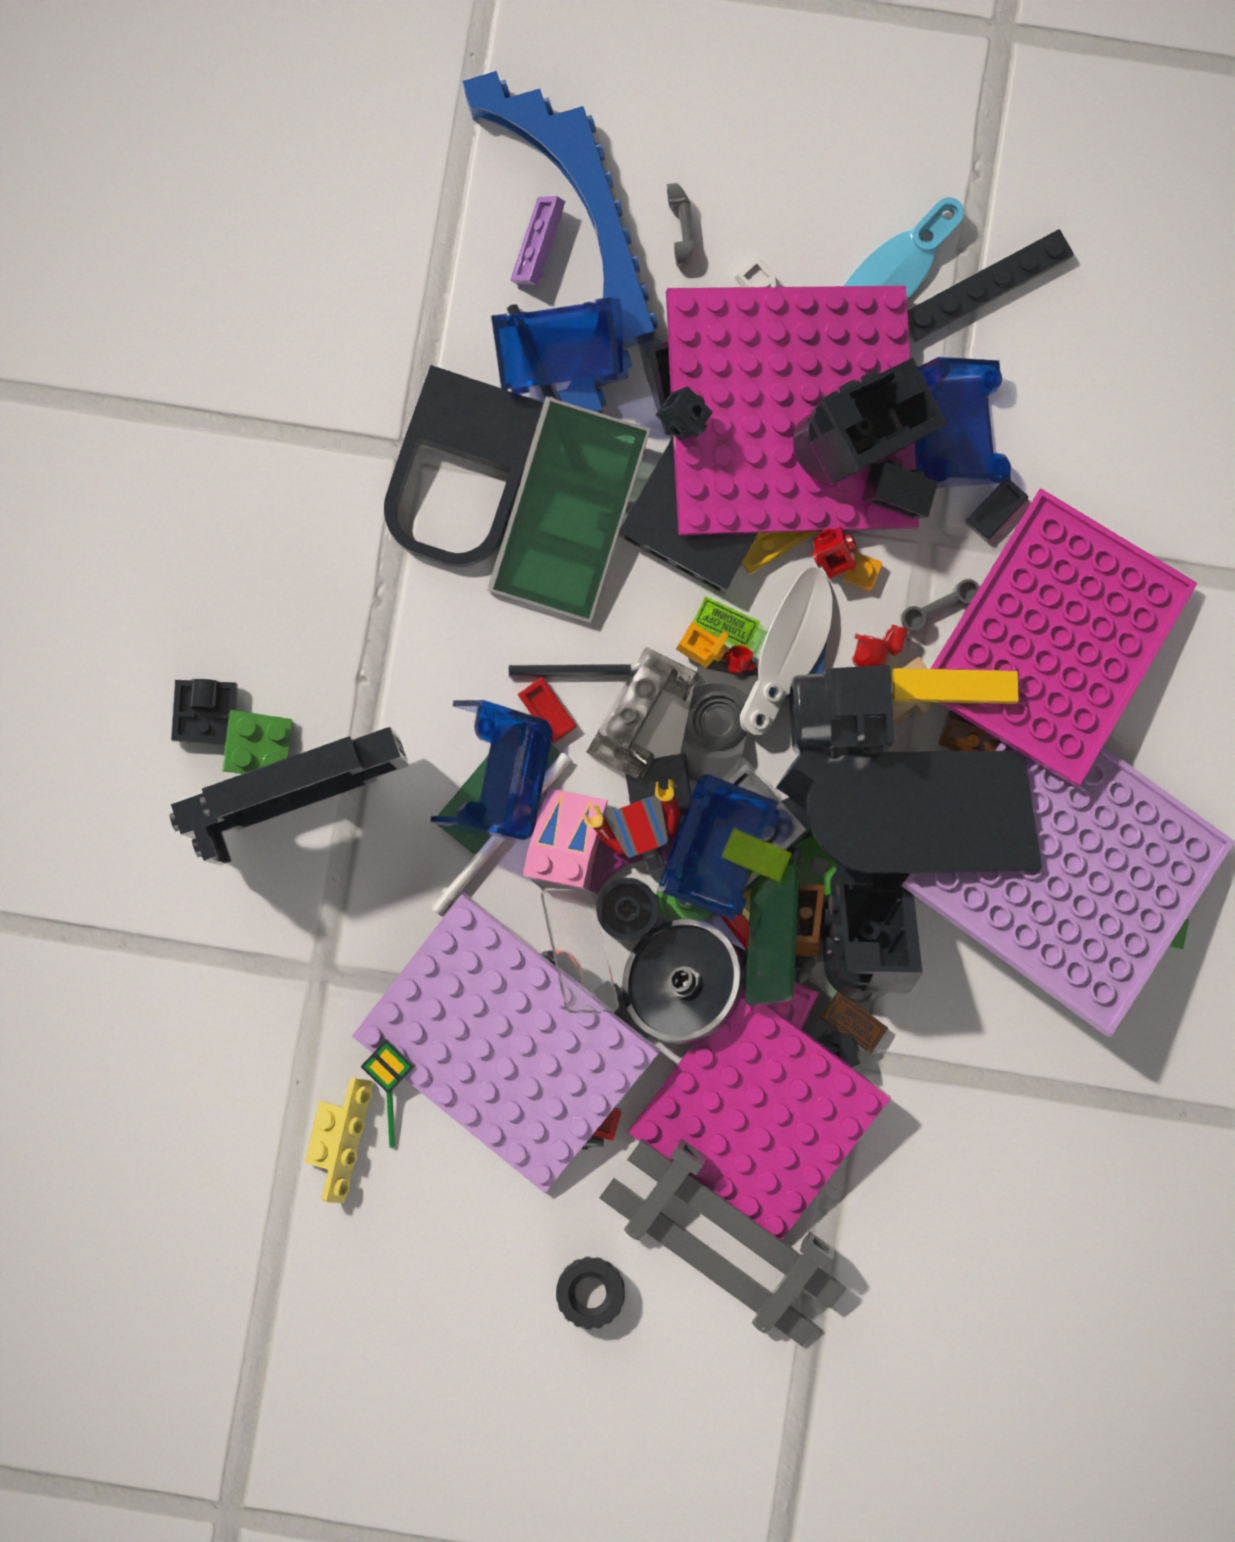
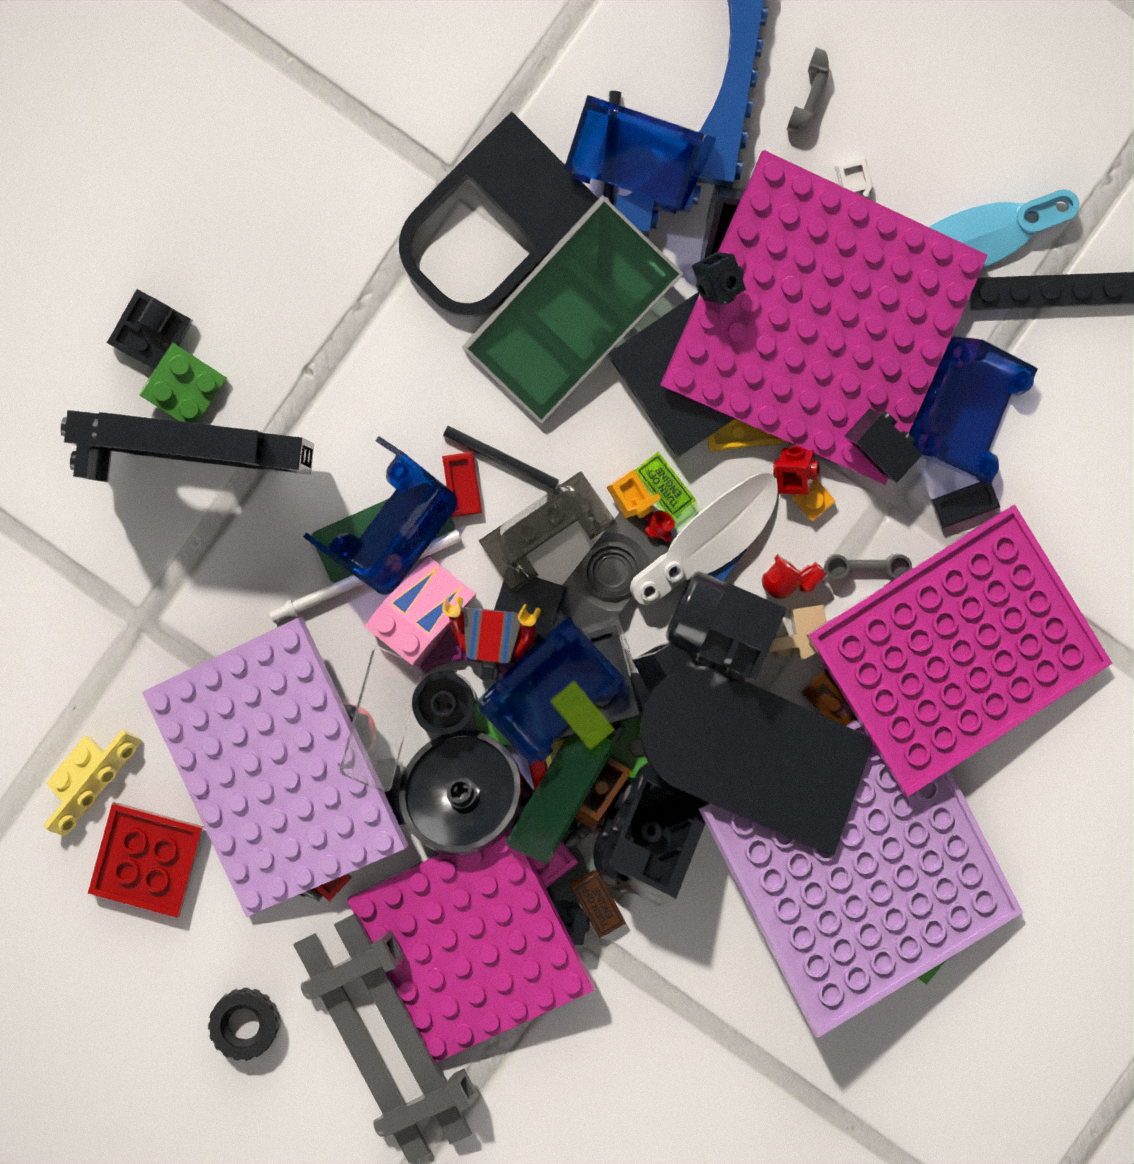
camera: 25 degrees right, 5 degrees up
(388, 1068) = (159, 739): piece -> none
(428, 1186) = (145, 859): none -> red plate
(537, 240) = (669, 41): medium lavender plate -> none
(866, 423) = (883, 370): black brick -> none
(955, 686) = (840, 650): yellow tile -> none

